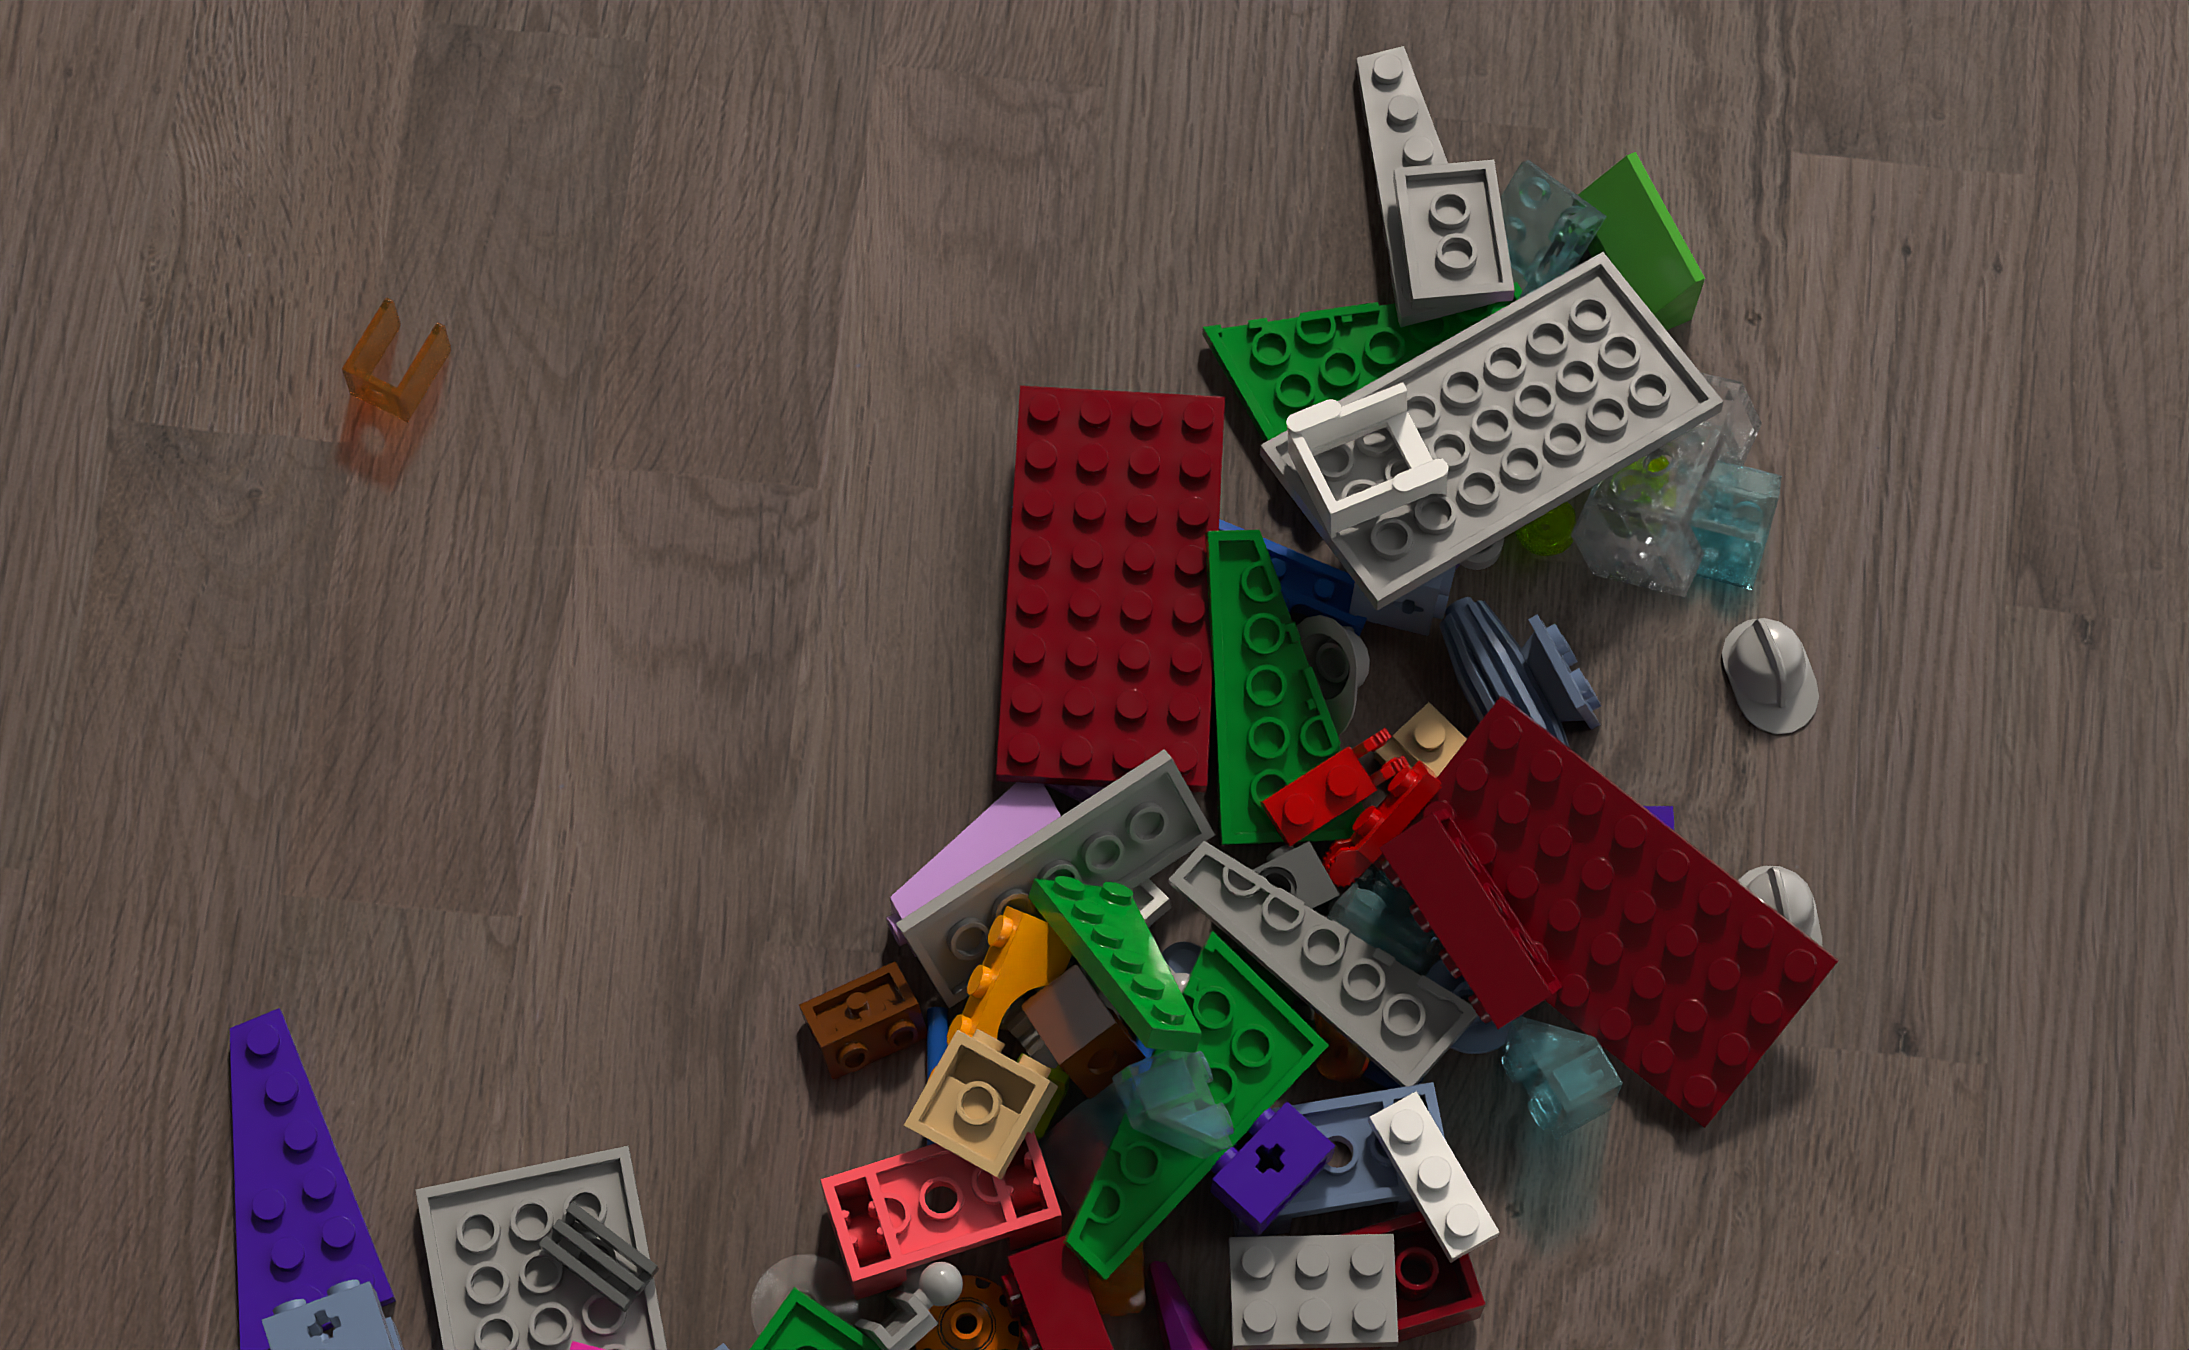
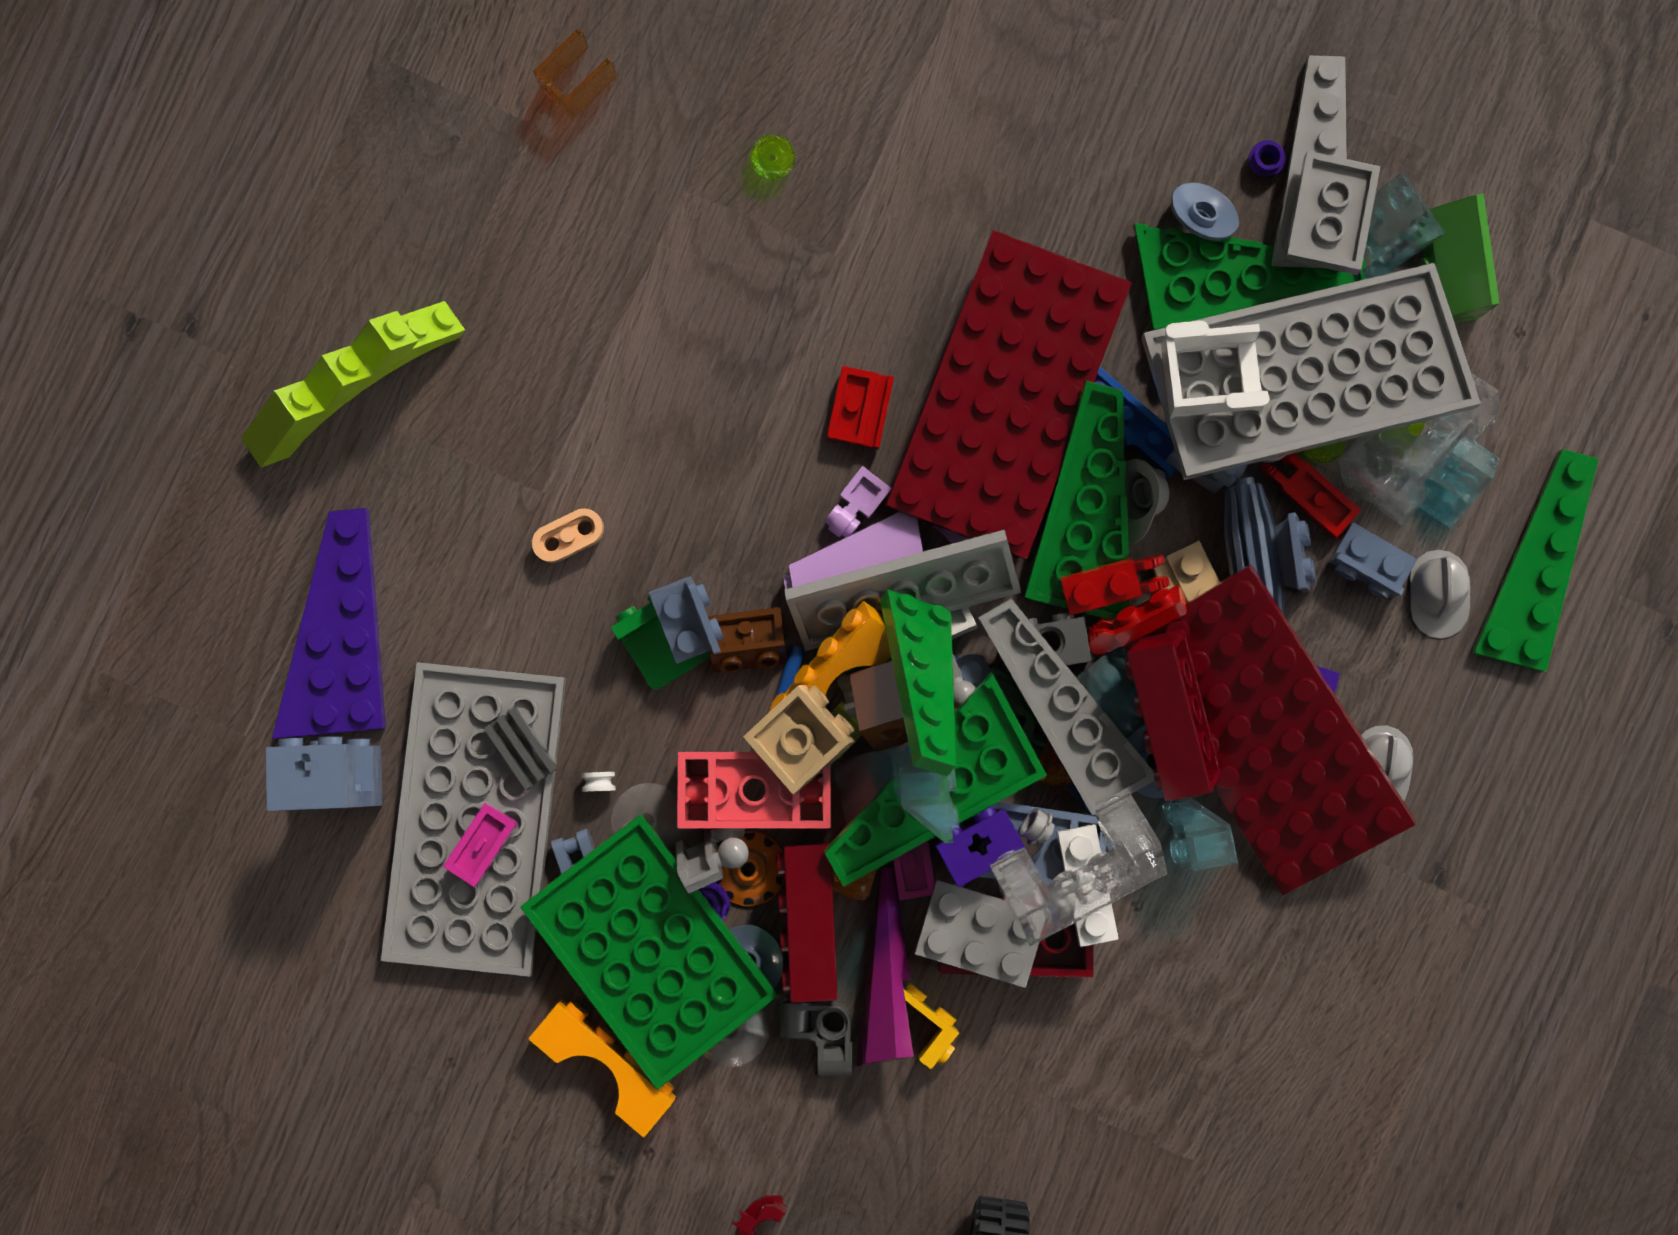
camera: 25 degrees right, 15 degrees up
(196, 837) = (344, 373): none -> lime arch
(570, 957) = (568, 534): none -> light nougat plate
(690, 373) = (772, 145): none -> clear neon green plate
(719, 1272) = (598, 781): none -> white bush
(746, 1051) = (649, 648): none -> green bracket
(775, 1004) = (685, 620): none -> sand blue bracket
(918, 670) = (860, 407): none -> red plate
(959, 782) = (864, 496): none -> lavender plate
(1192, 1249) = (914, 873): none -> dark pink plate
(1289, 286) = (1204, 211): none -> sand blue dish
(1340, 1119) = (1037, 827): none -> light grey plate
(1351, 187) = (1271, 149): none -> dark purple plate
(1467, 1125) = (1132, 863): none -> clear plate
(1556, 597) = (1313, 495): none -> red hinge
(1666, 660) = (1372, 562): none -> sand blue bracket
(1889, 633) = (1532, 594): none -> green wing

